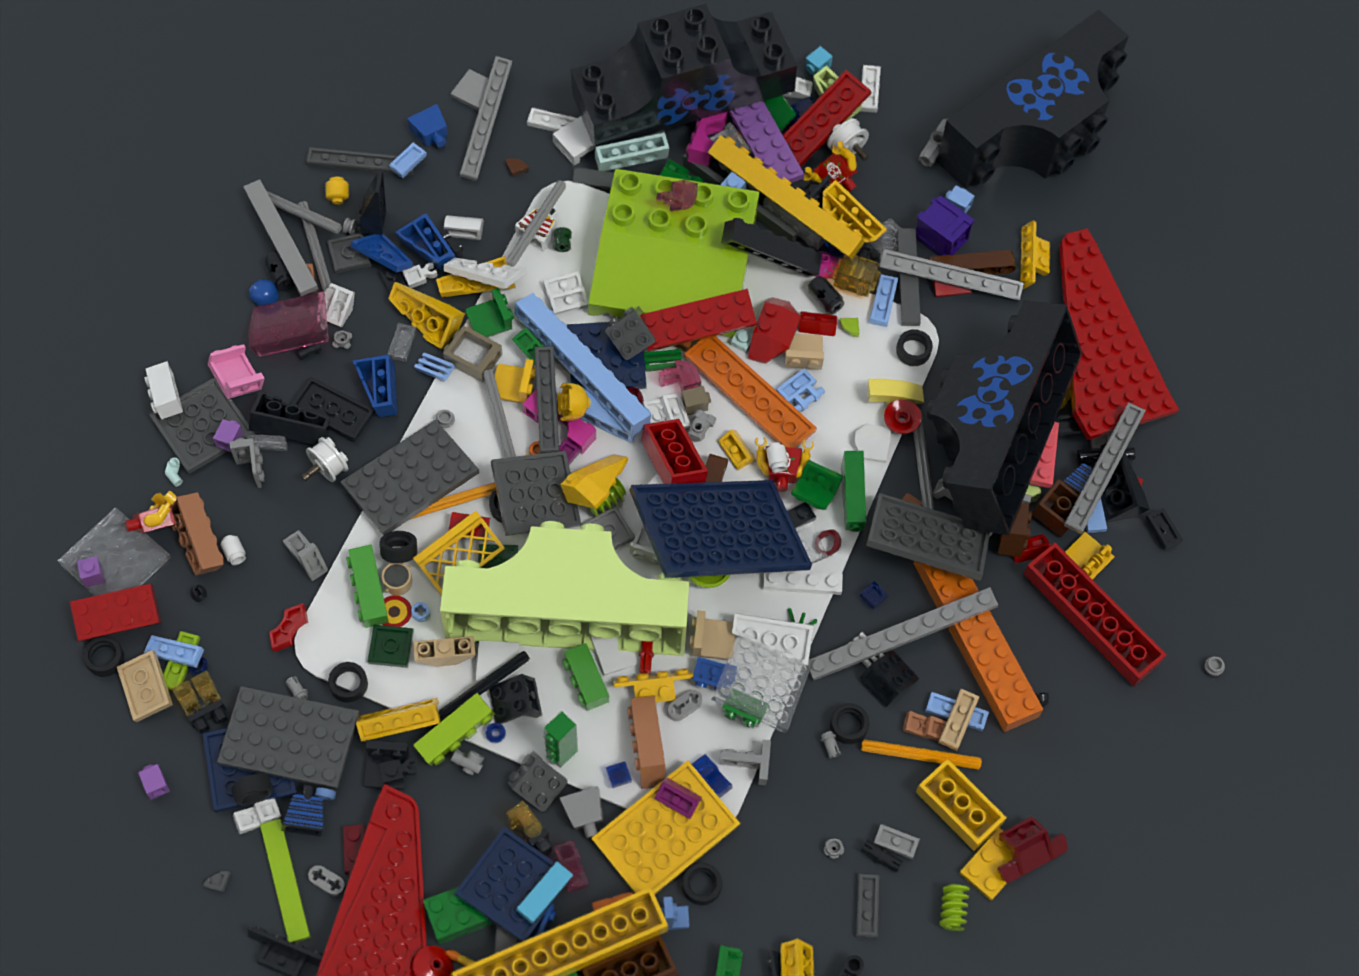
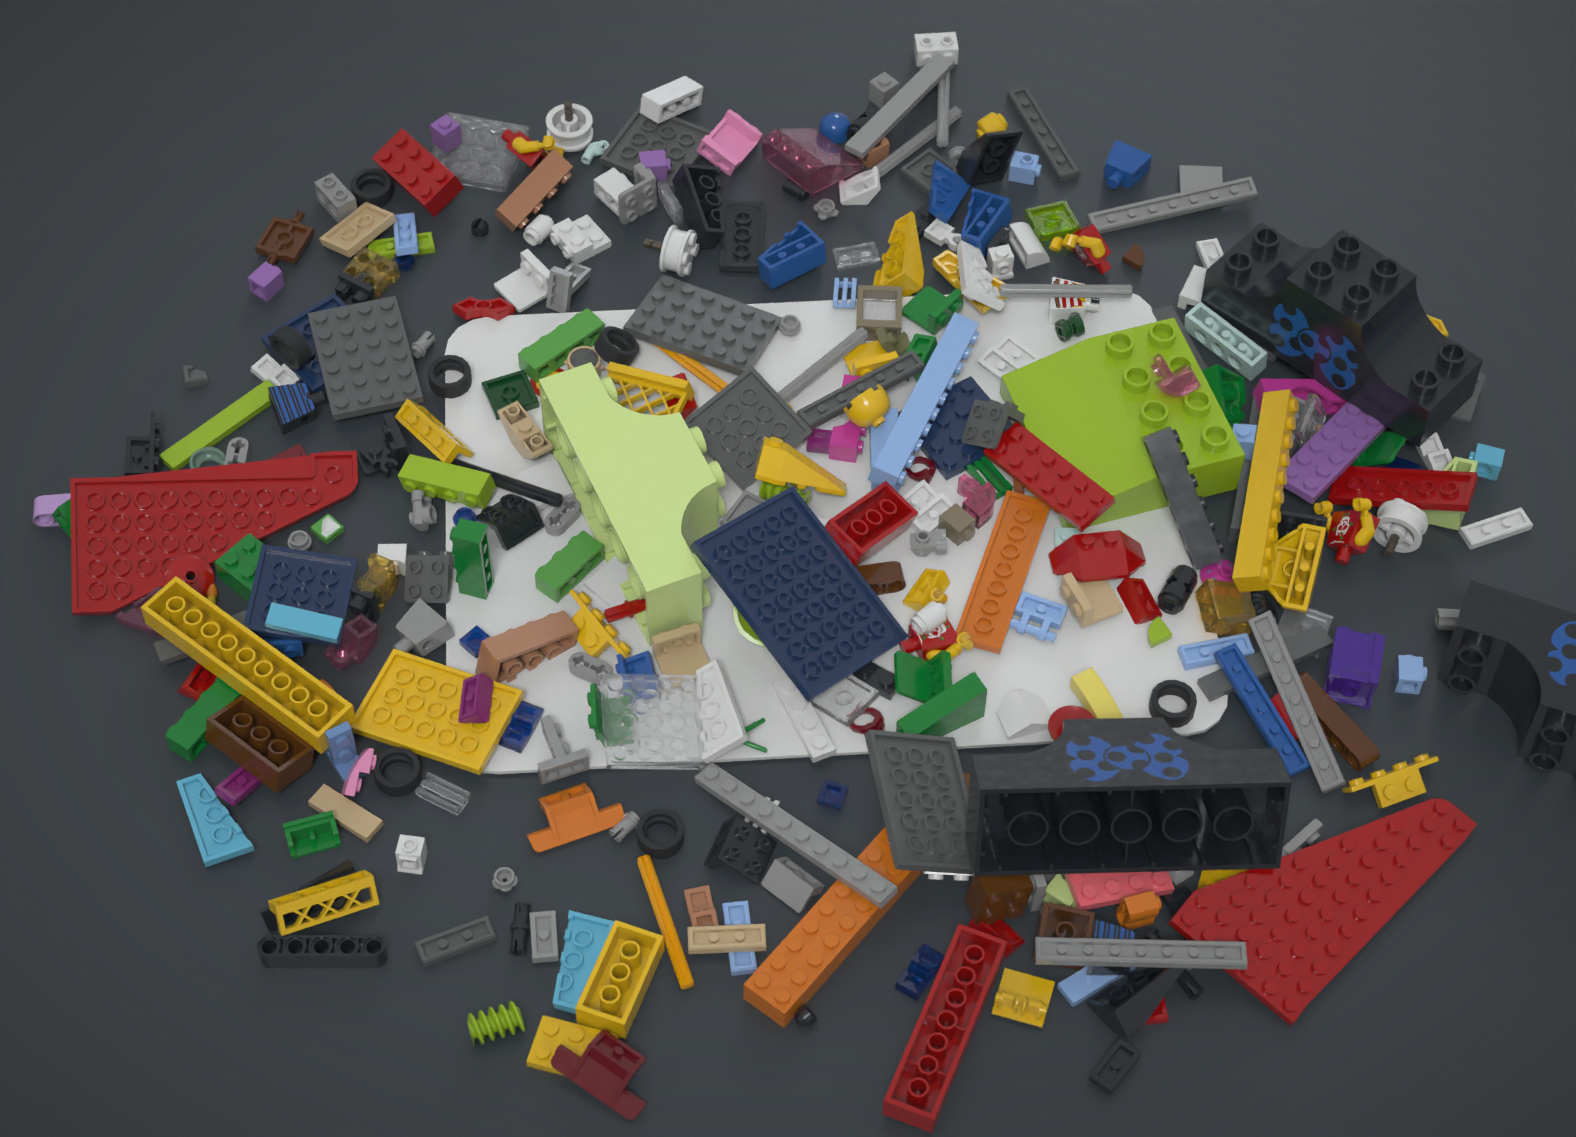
camera: 65 degrees right, 10 degrees down
(99, 688) = (335, 197): none -> light grey brick
(115, 748) = (285, 239): none -> reddish brown plate
(140, 477) = (570, 126): none -> white wheel
(230, 186) = (930, 44): none -> white brick
(233, 474) = (609, 186): none -> white brick
(252, 241) = (882, 89): none -> light grey brick
(259, 524) = (579, 238): none -> white plate
(283, 584) = (526, 284): none -> white bracket
(311, 899) = (206, 454): none -> sand green piece
(325, 794) = (324, 414): medium blue tile -> none
(393, 189) = (1024, 168): none -> light blue brick
(407, 160) = (1069, 165): light blue tile -> none
(440, 840) = (327, 529): none -> bright green tile
(442, 867) = (299, 540): none -> light grey plate
(450, 198) = (1052, 220): none -> clear neon green plate
(470, 250) = (1000, 262): none -> white brick
(494, 188) = (1087, 245): none -> torso
(501, 803) = (396, 553): none -> white window
(509, 356) = (891, 342): none -> olive bracket
(537, 658) = (564, 518): none -> light grey beam
(690, 908) = (362, 764): none -> bright pink slope
(722, 934) = (346, 813): none -> tan tile
(750, 849) = (438, 785): none -> clear tile
(783, 904) = (413, 850): none -> white window
(804, 776) = (572, 816): none -> orange plate
(922, 821) = (581, 950): none -> medium azure wing
(932, 656) = (791, 883): none -> light grey panel
(944, 299) = (1261, 708): none -> blue tile
(1038, 610) = (920, 972): none -> clear blue slope
(1066, 453) = (1138, 910): none -> orange brick

